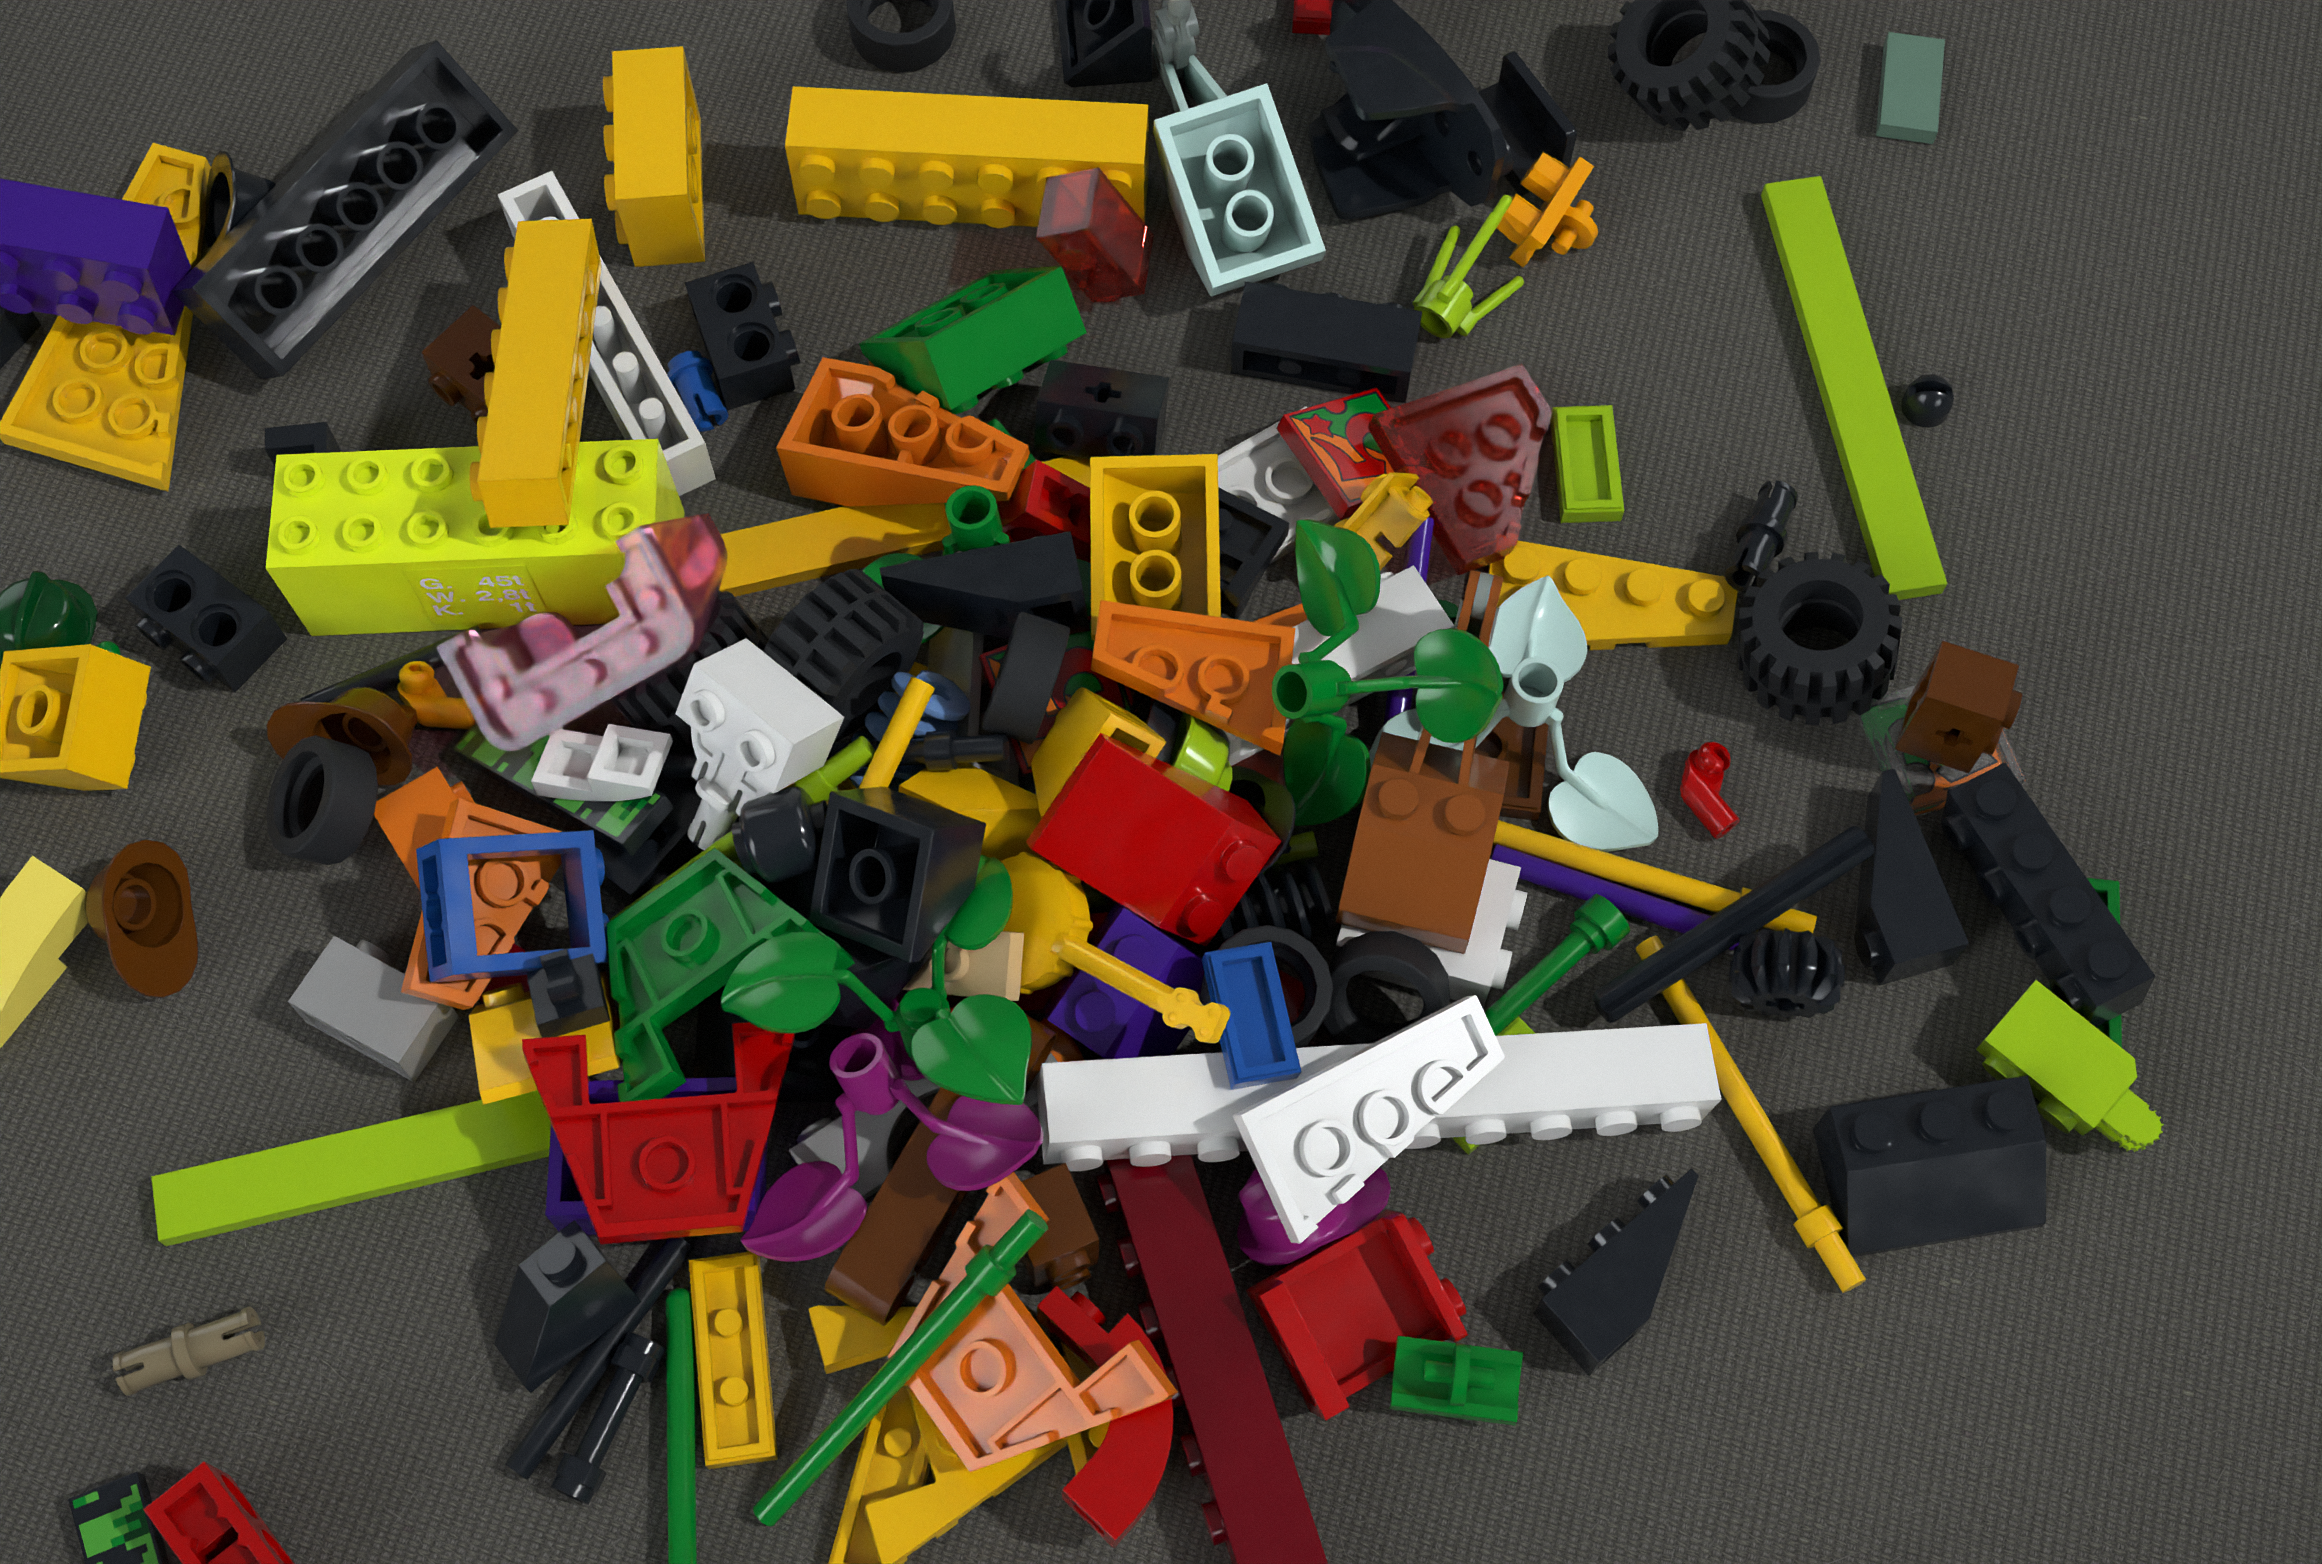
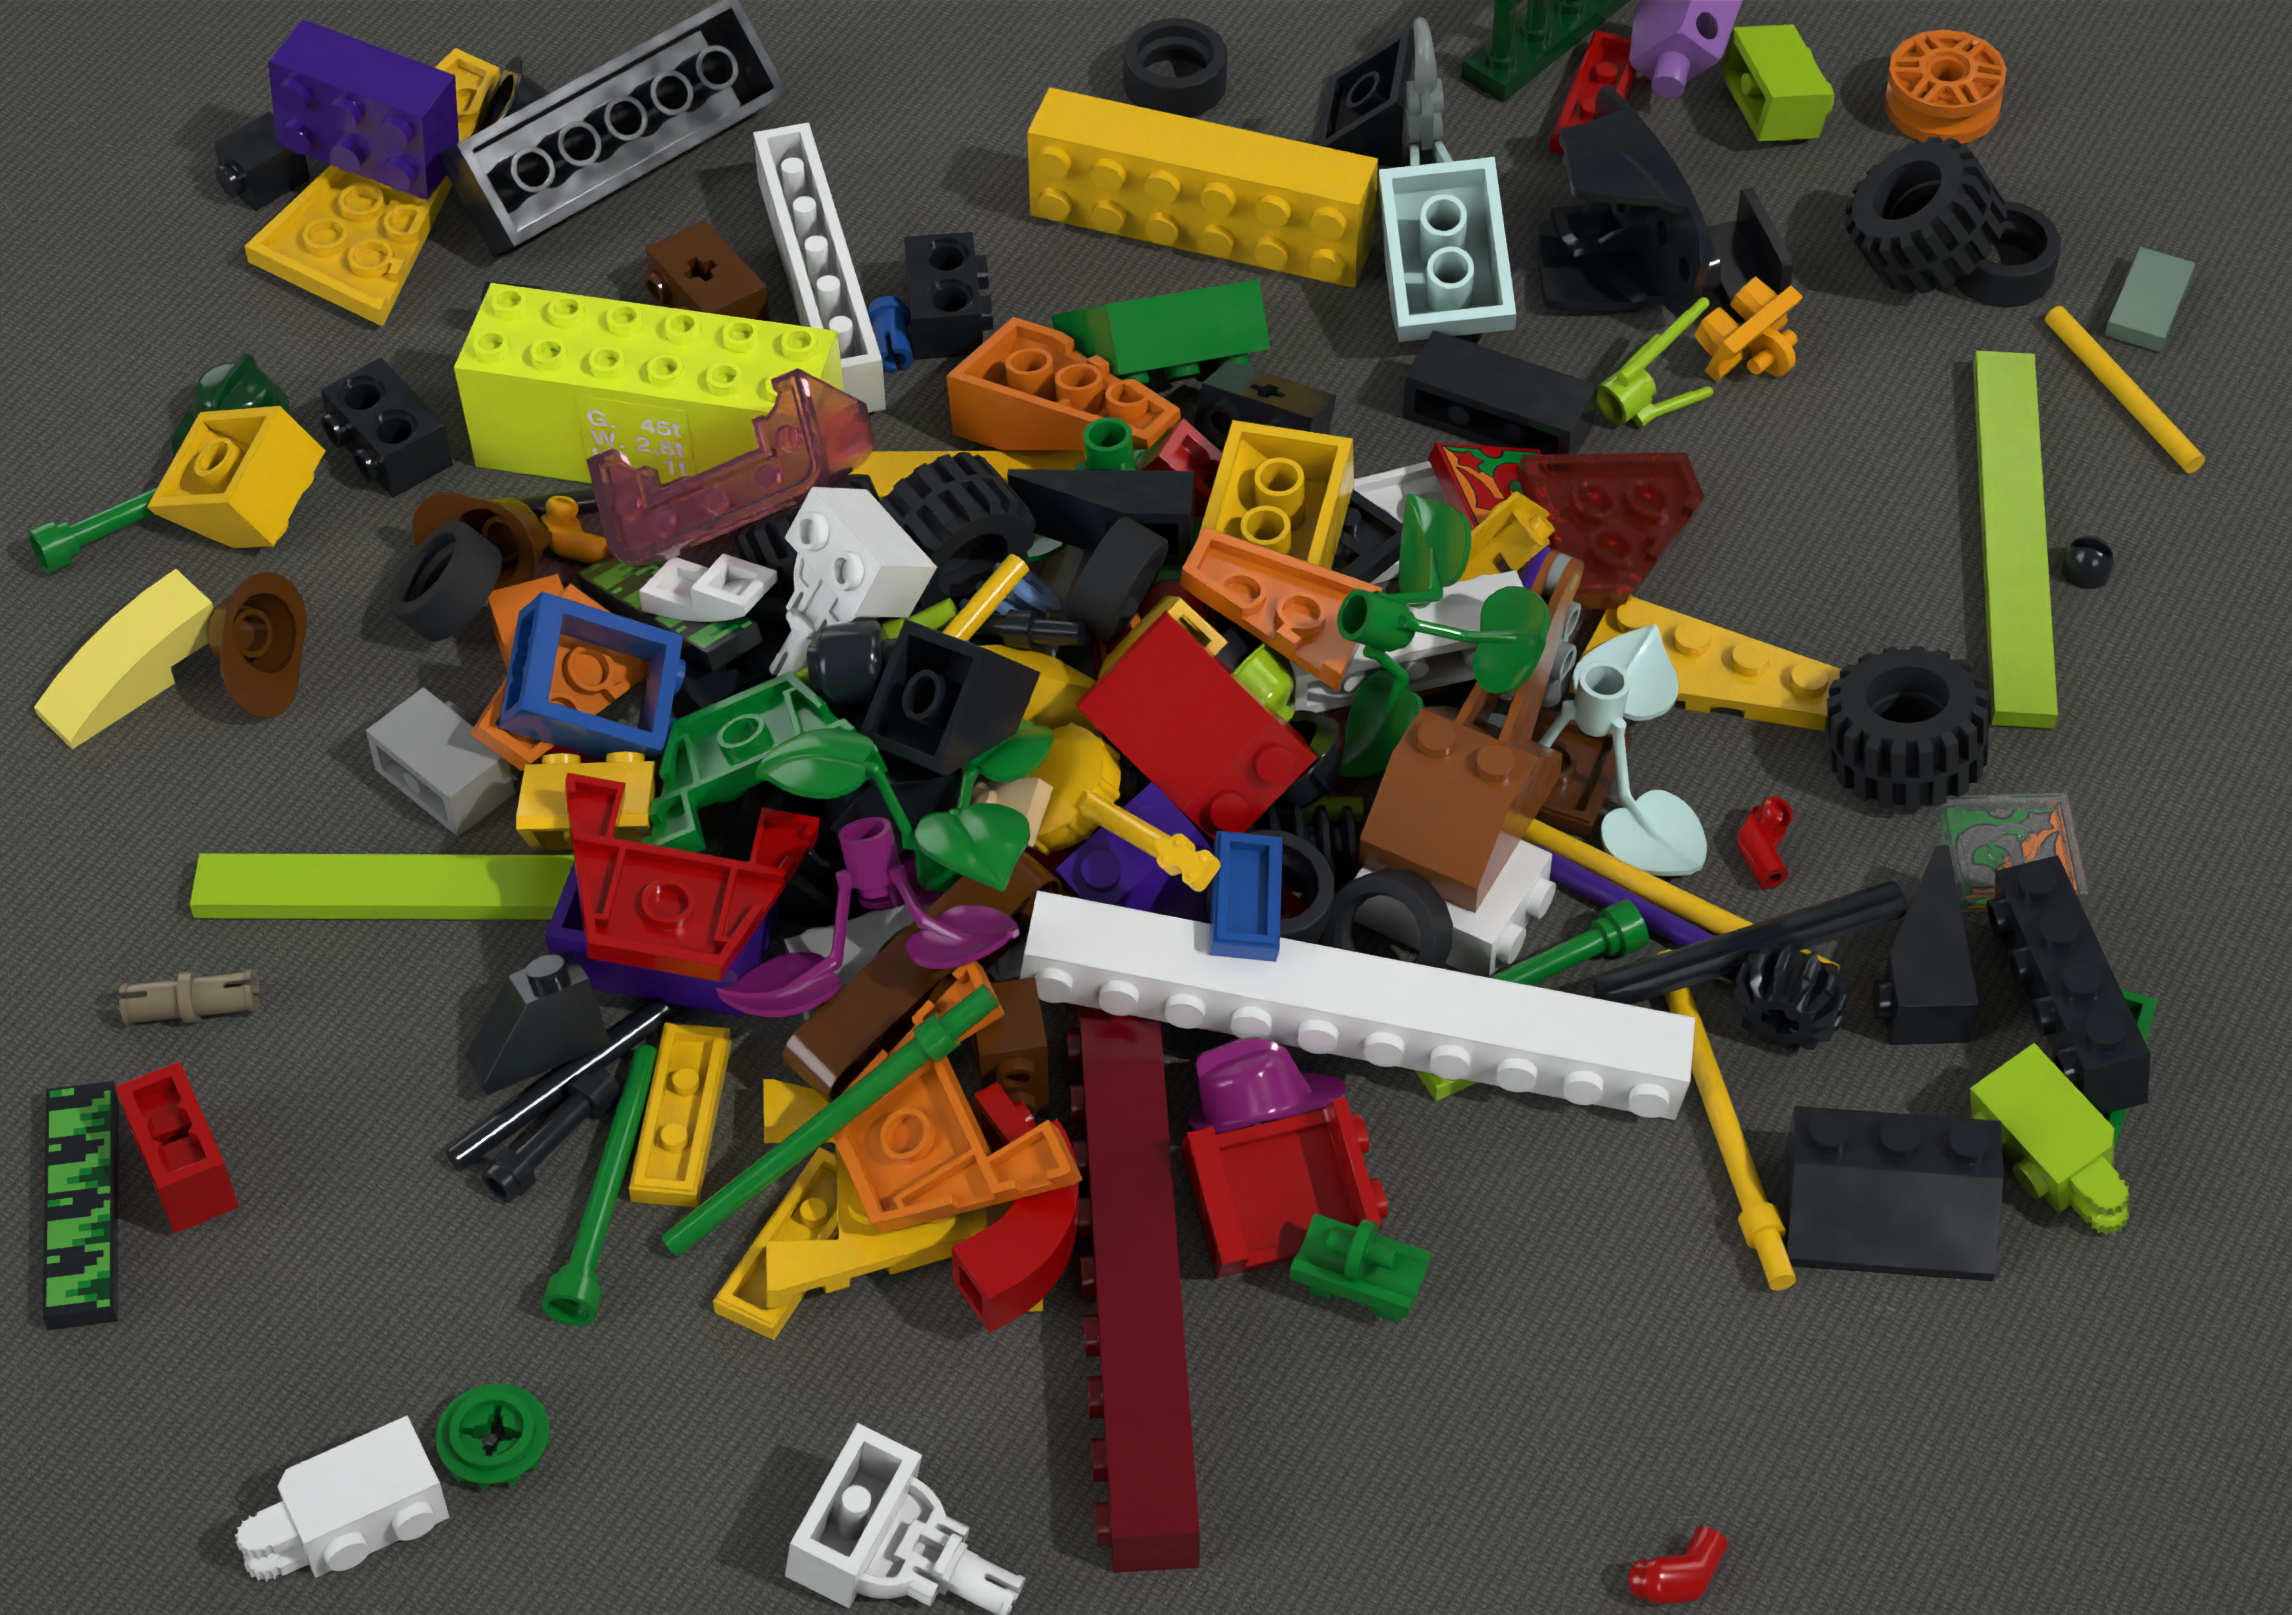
camera: 15 degrees right, 15 degrees down
(538, 375) = (745, 258): yellow brick -> none
(567, 994) = (621, 754): black tile -> none
(655, 157) = (908, 134): yellow brick -> none
(1095, 235) = (1300, 266): clear red brick -> none
(1348, 1119) = (1318, 995): white wing -> none
(1586, 464) = (1727, 552): lime tile -> none
(1614, 1290) = (1540, 1228): black slope -> none
(1761, 535) = (1883, 631): black pin -> none
(1912, 195) = (2125, 389): none -> yellow bar
(1959, 707) = (2023, 797): reddish brown brick -> none

